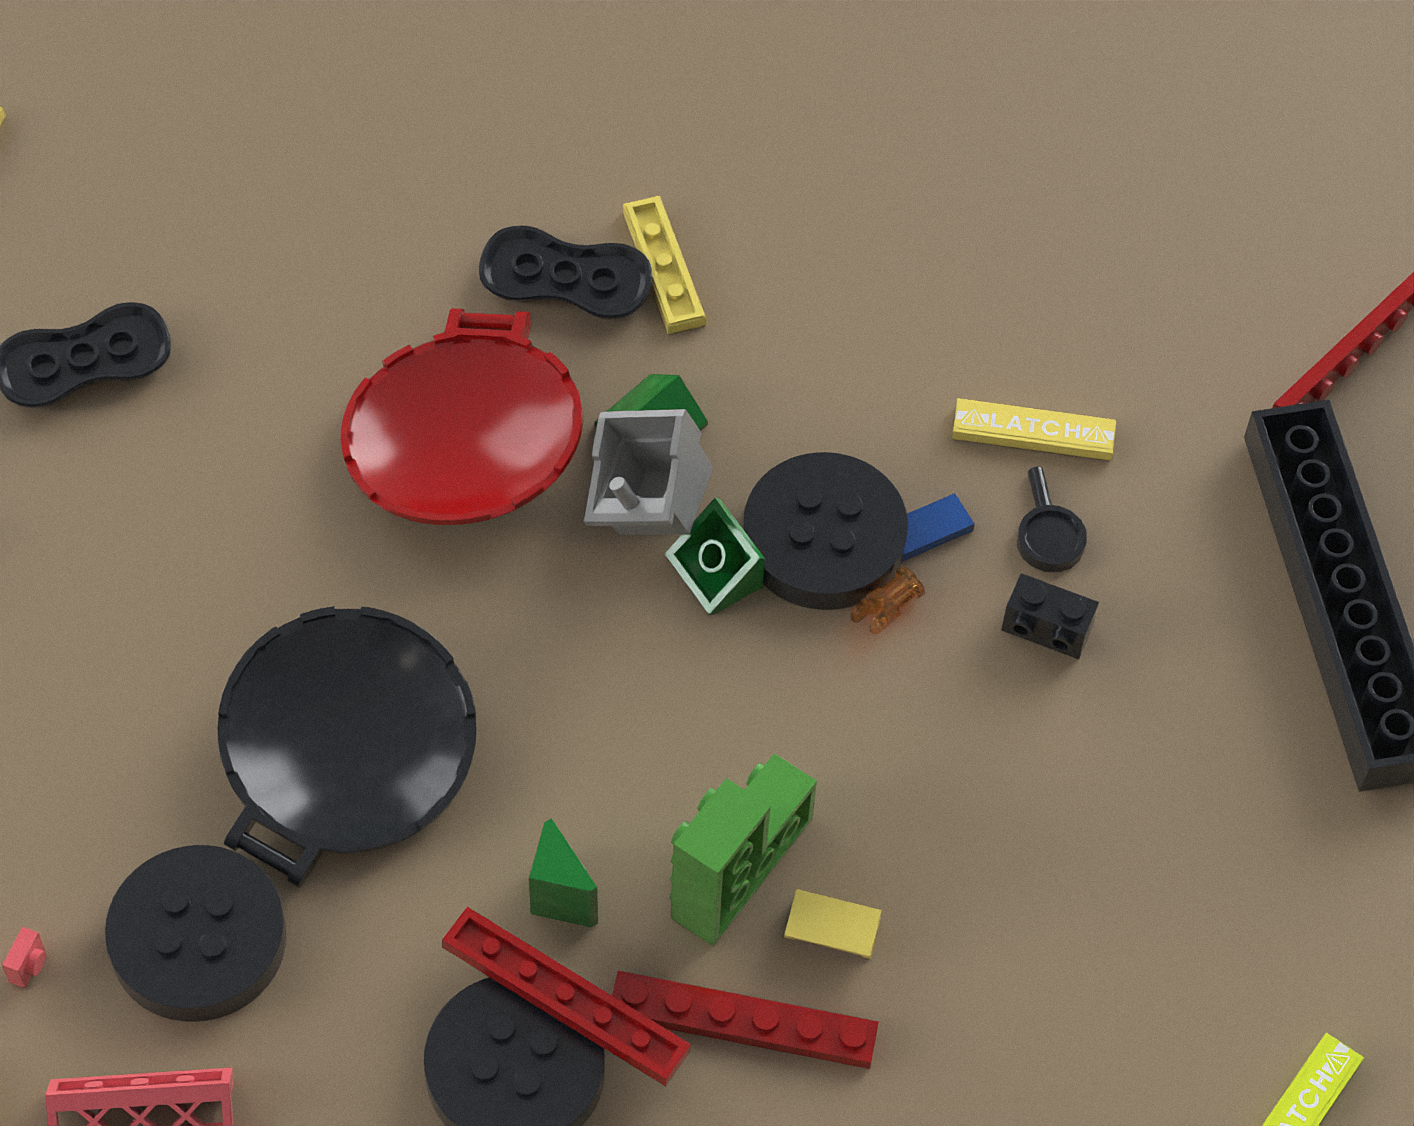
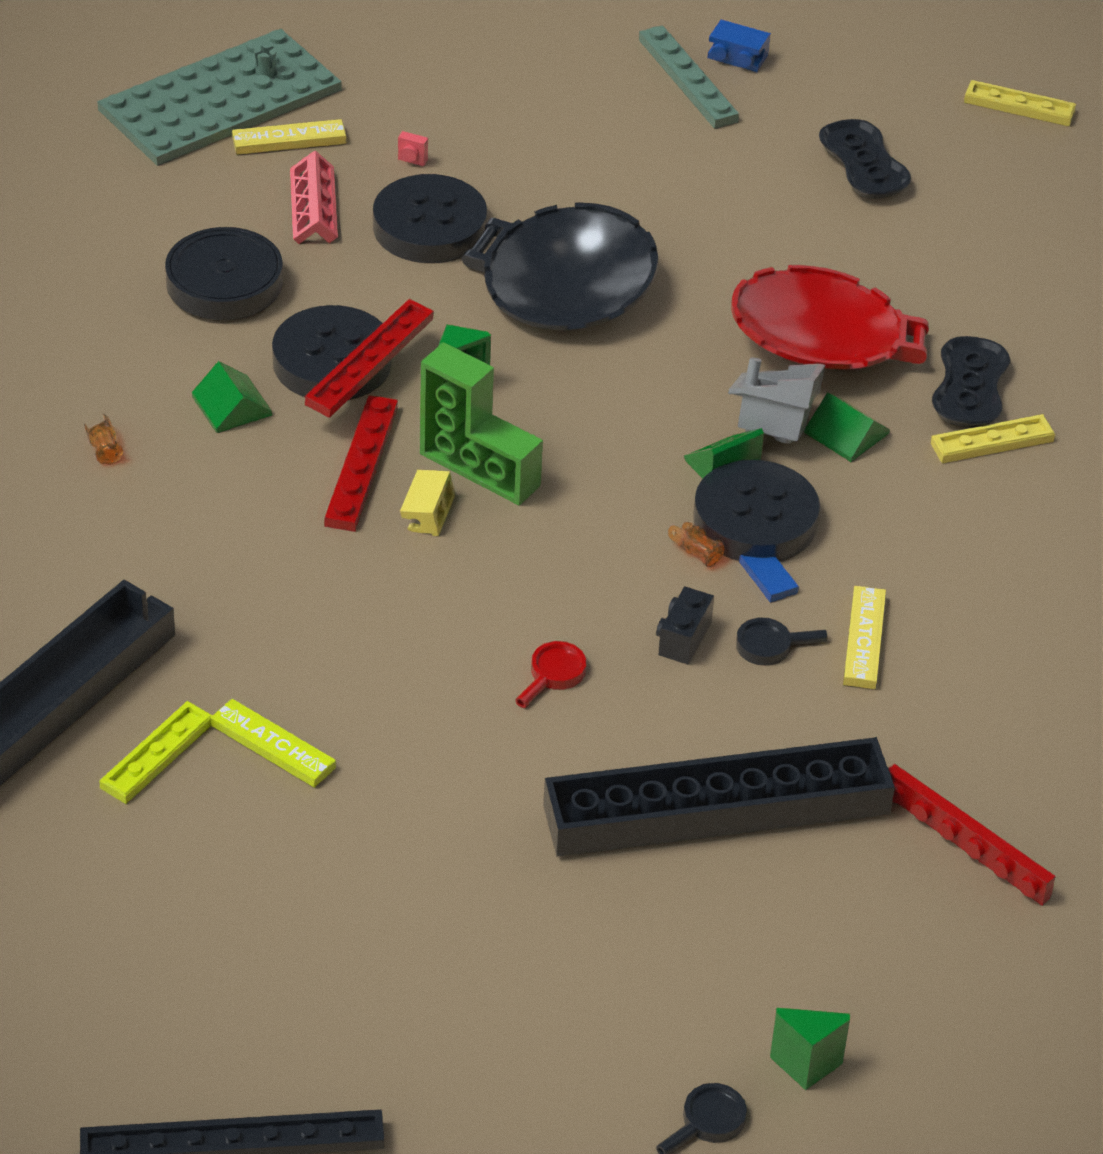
camera: 90 degrees right, 15 degrees down
(1122, 773) = (554, 666): none -> red piece

